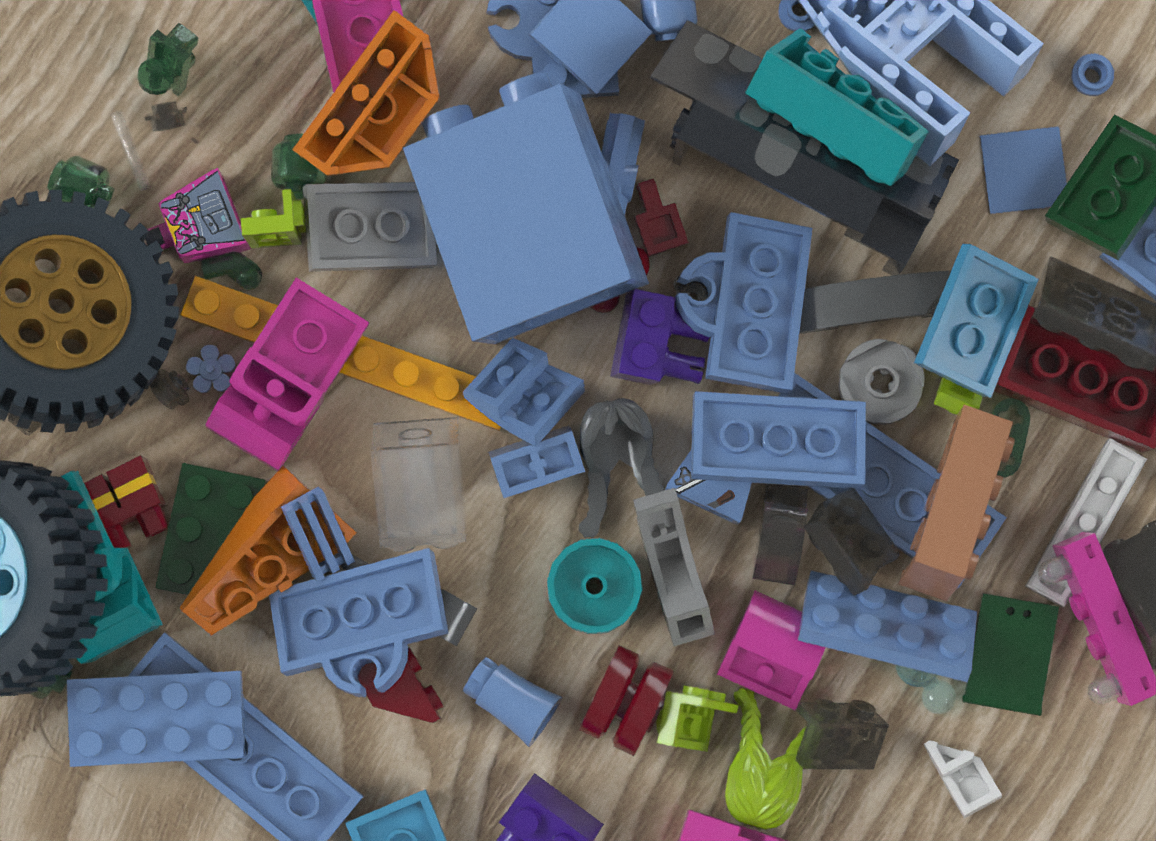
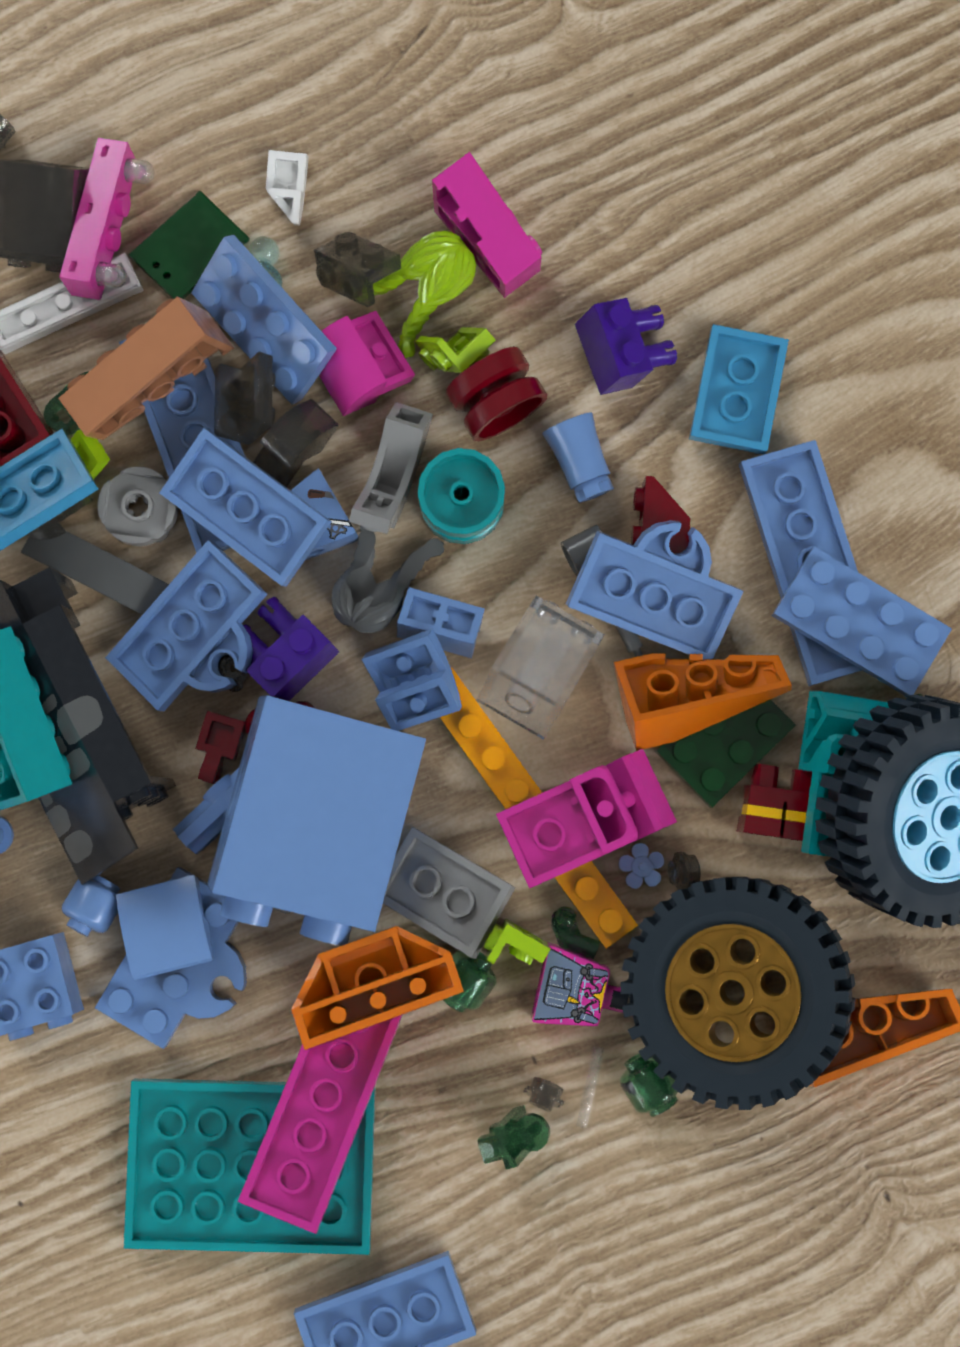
camera: 145 degrees left, 0 degrees up
(331, 561) = (648, 652): medium blue tile -> none

